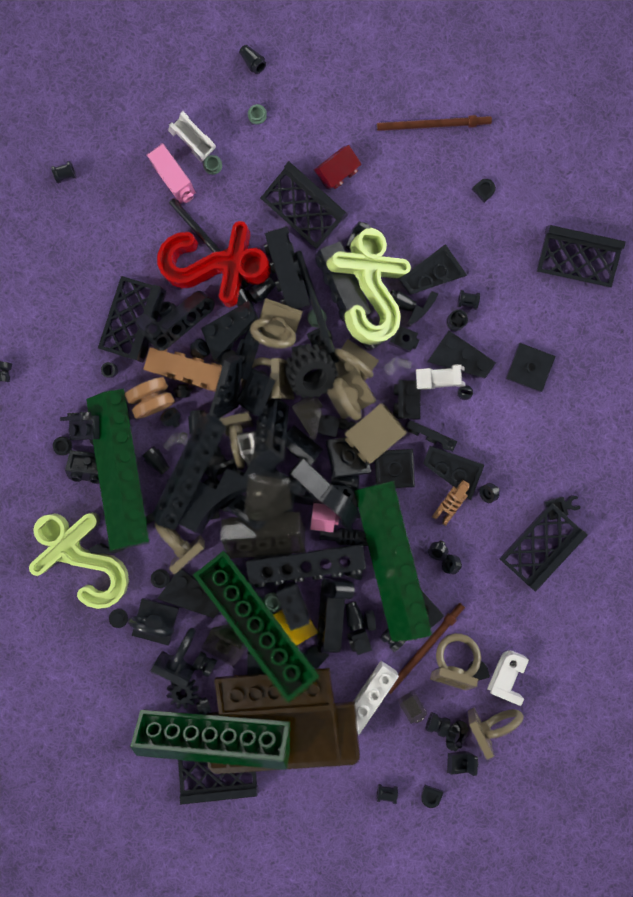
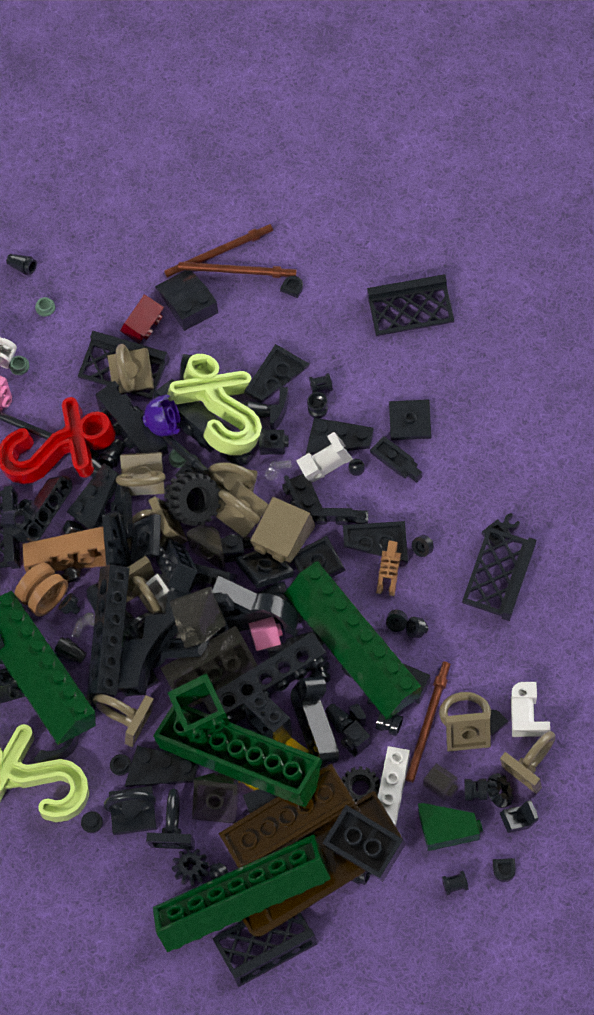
camera: 20 degrees left, 25 degrees down
(201, 660) = (197, 830): black wheel -> none
(239, 554) = (191, 692): none -> dark green window
(307, 217) = (131, 369): none -> dark tan tile
(314, 281) = (162, 416): none -> dark purple cylinder
(326, 755) = (364, 843): none -> black brick
(354, 691) = (361, 775): none -> black tyre
(386, 161) = (188, 299): none -> black slope
(401, 747) = (447, 826): none -> dark green slope
(476, 168) = (275, 272): none -> copper bar
(502, 401) = (396, 459): none -> black hinge

